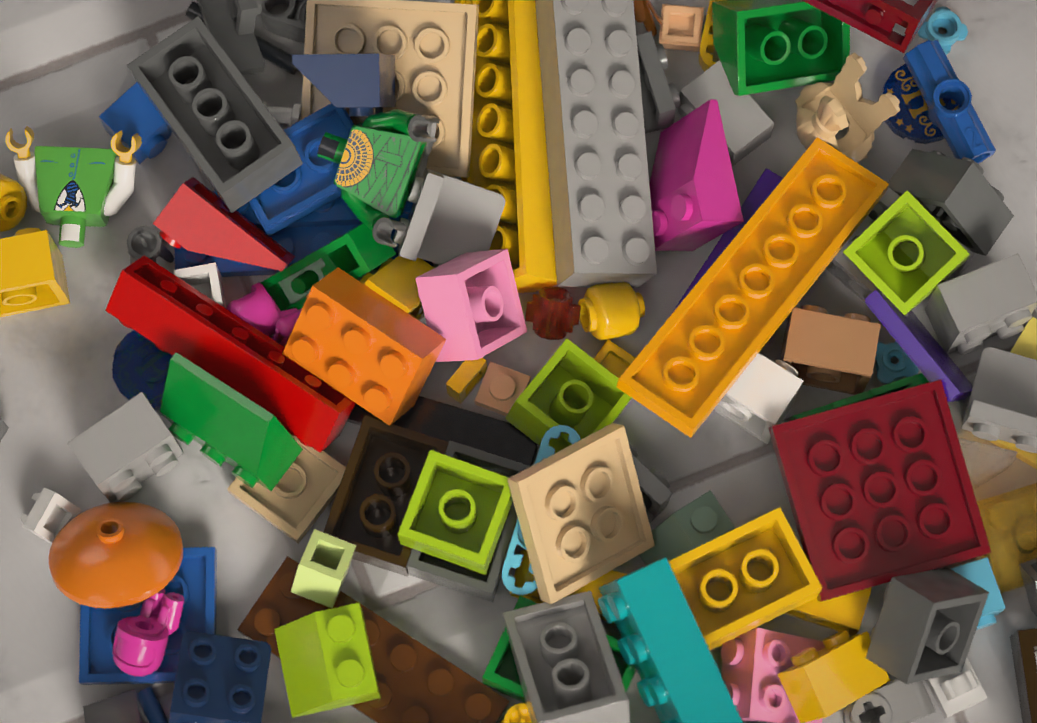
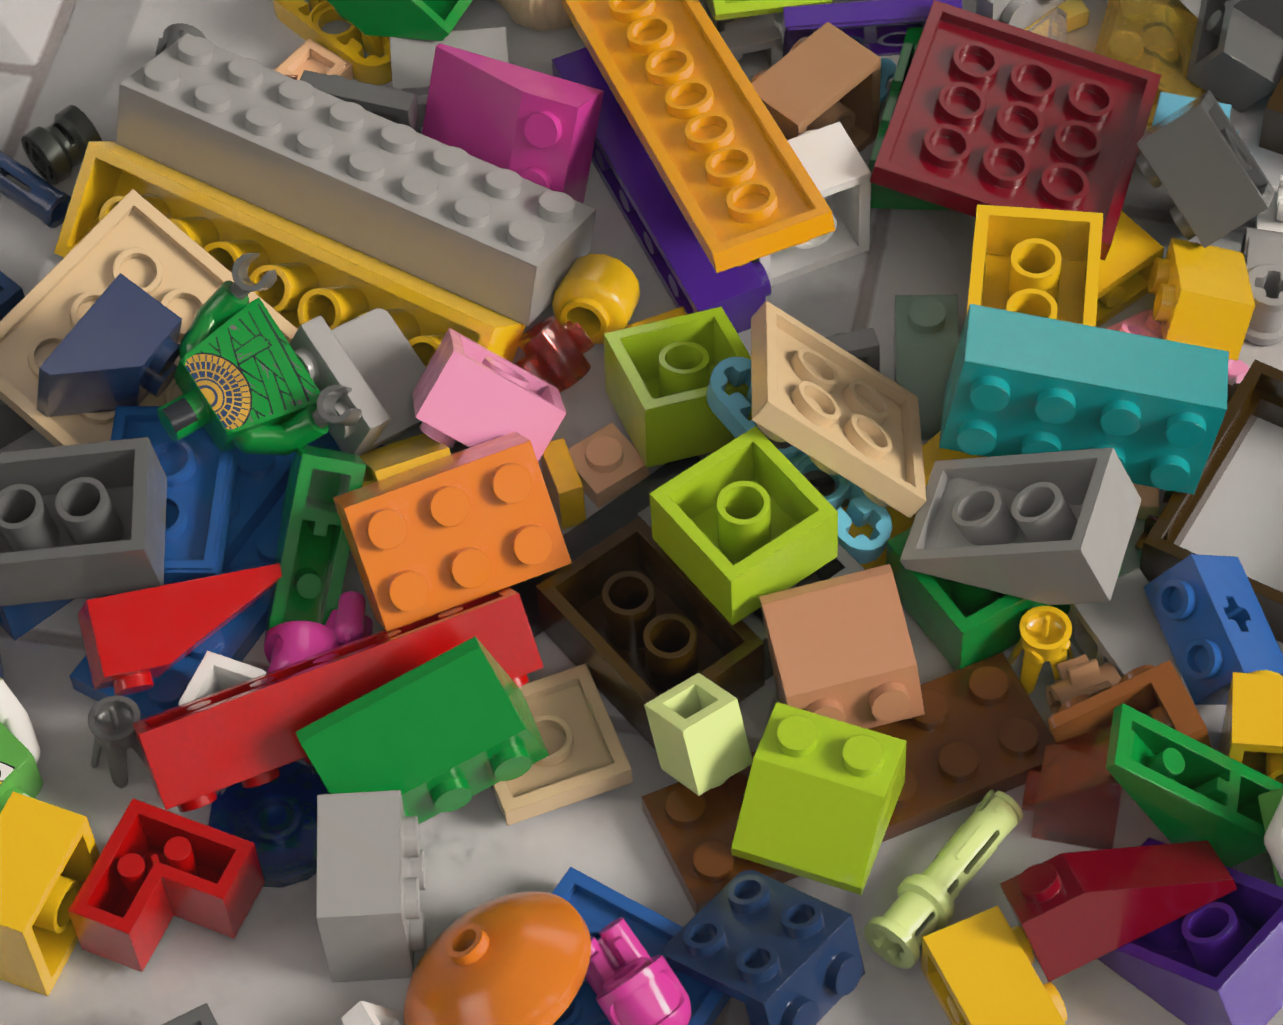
camera: 55 degrees left, 20 degrees down
(68, 327) = (159, 870): none -> red brick
(422, 619) = (844, 649): none -> nougat slope

